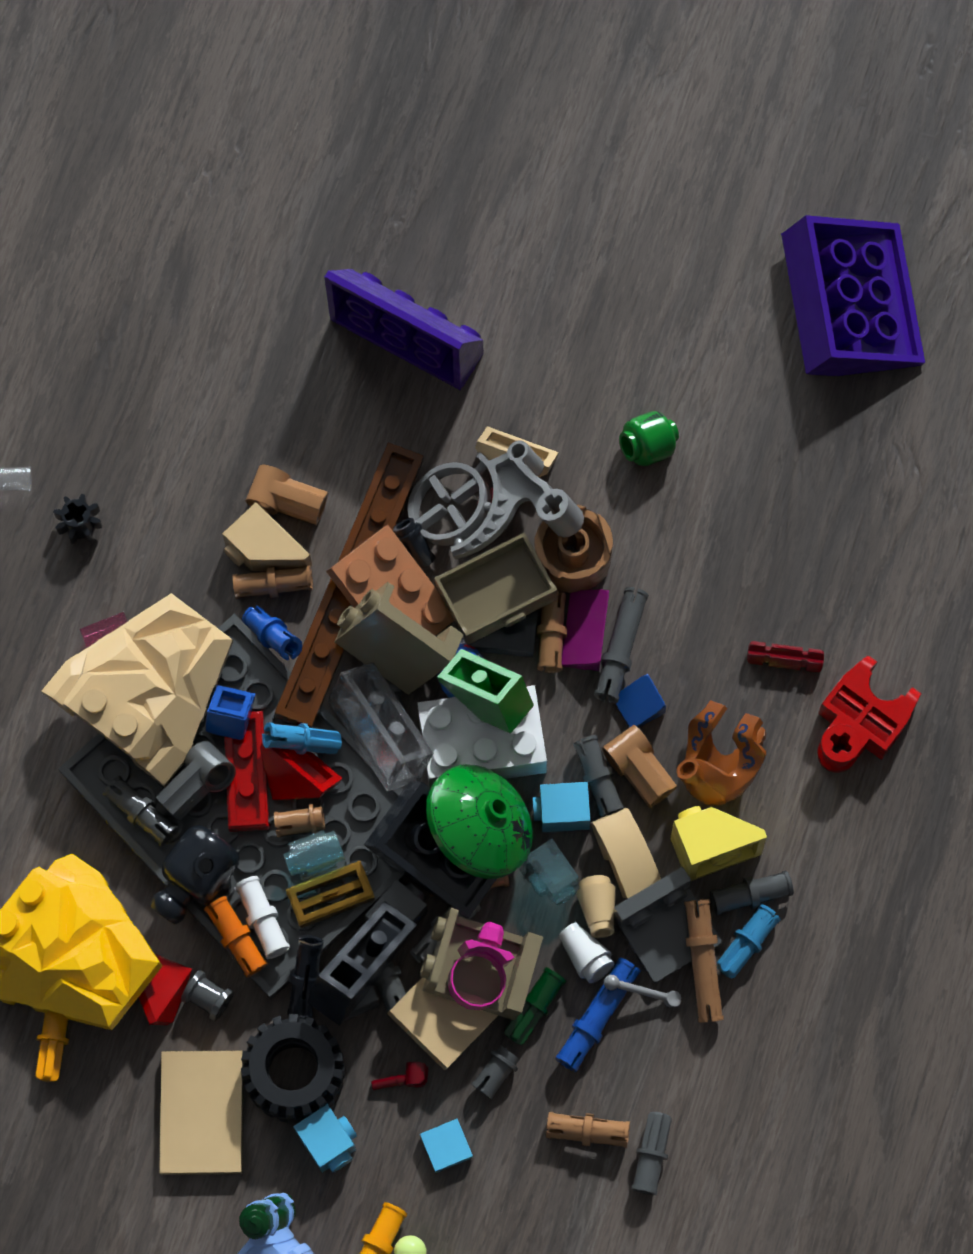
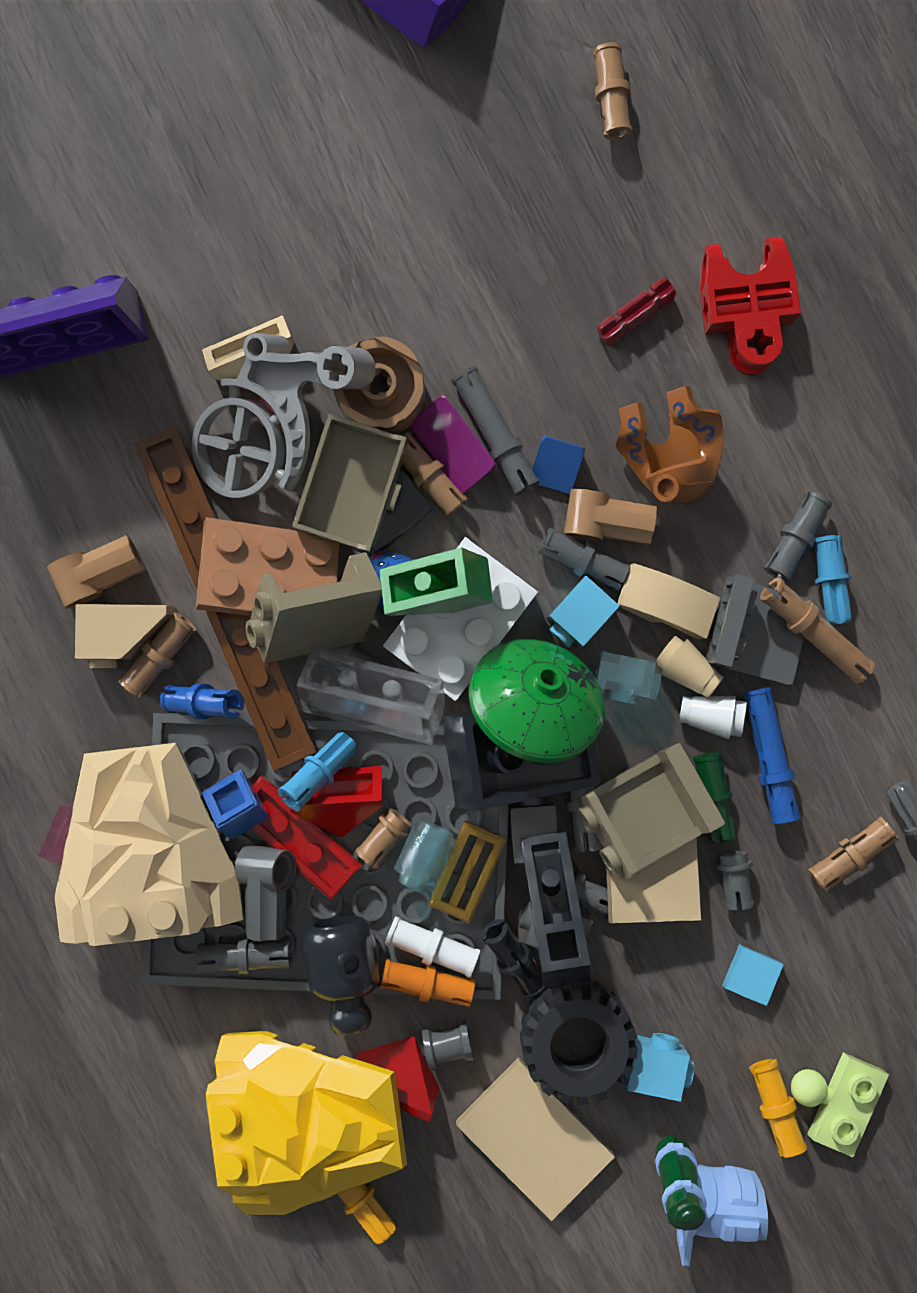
camera: 45 degrees left, 15 degrees up
(413, 540) = (236, 508): black pin -> none
(415, 1076) = (675, 947): dark red hand -> none
(486, 946) = (640, 788): dark pink piece -> none
(648, 438) = (347, 231): green head -> none
(670, 998) = (812, 684): light grey hinge -> none
(714, 841) = (736, 528): light yellow slope -> none
(902, 508) = (612, 91): none -> medium nougat pin

